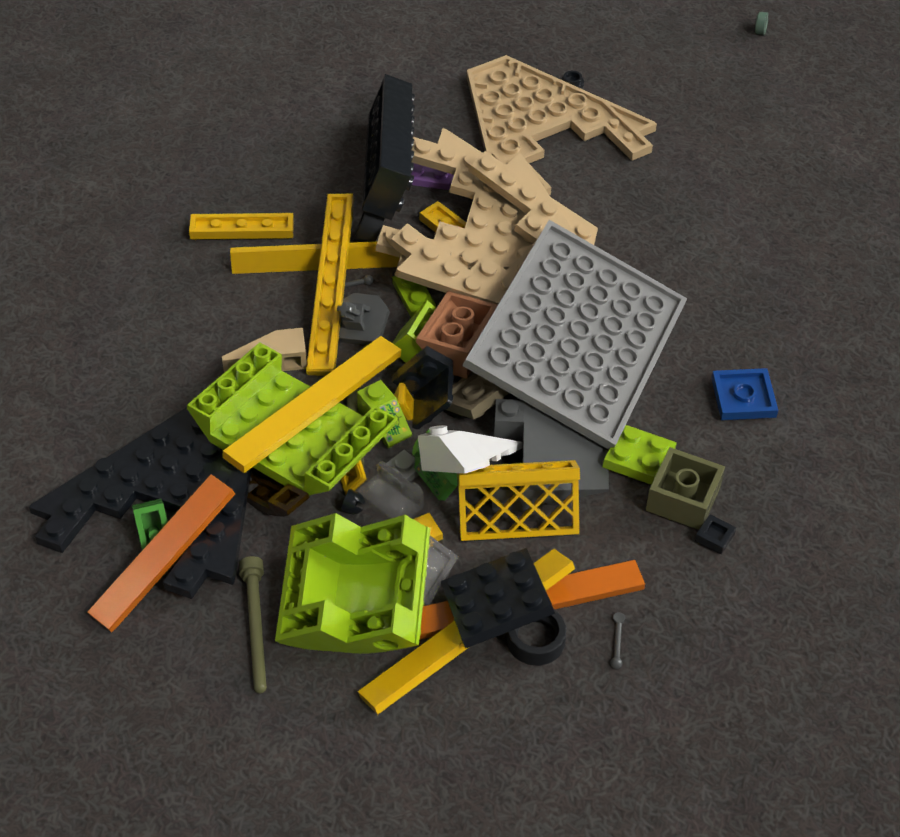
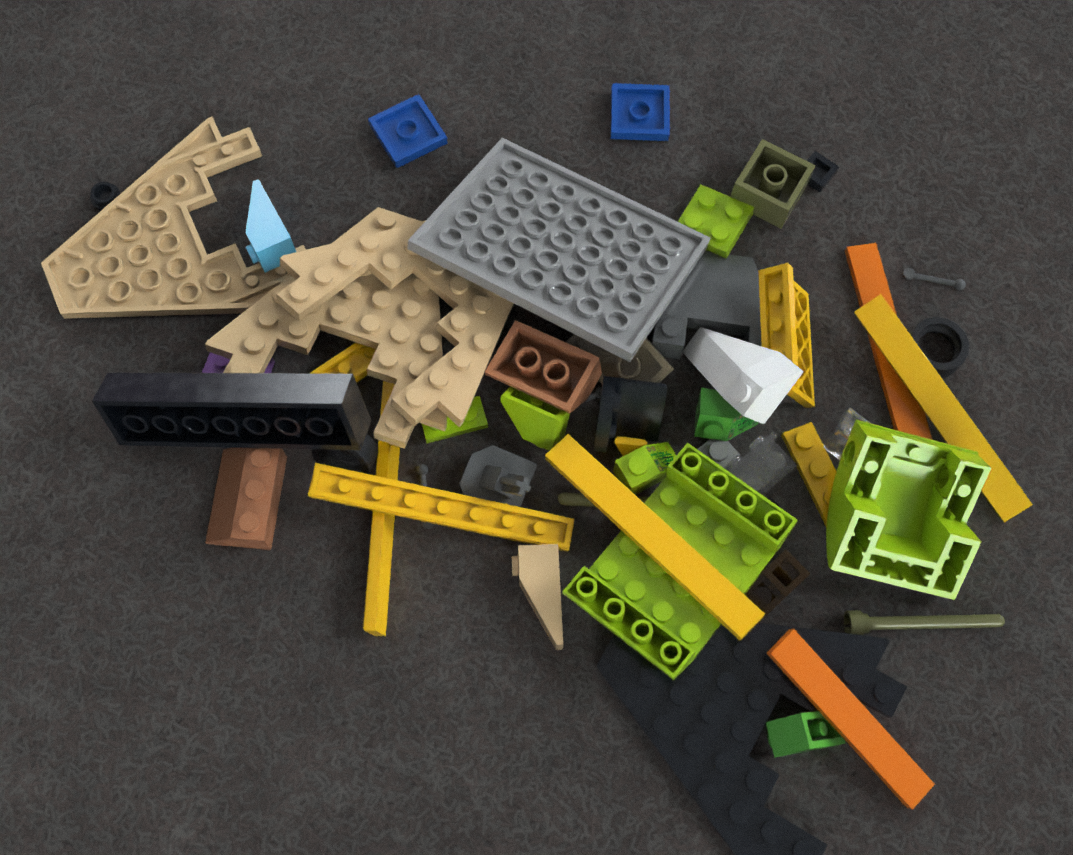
camera: 85 degrees left, 20 degrees up
(241, 226) = (308, 620): yellow plate -> none
(315, 183) = (247, 498): none -> nougat slope
(497, 597) = (918, 371): black plate -> none
(559, 161) = (266, 231): none -> medium azure slope
(678, 240) = (407, 131): none -> blue plate

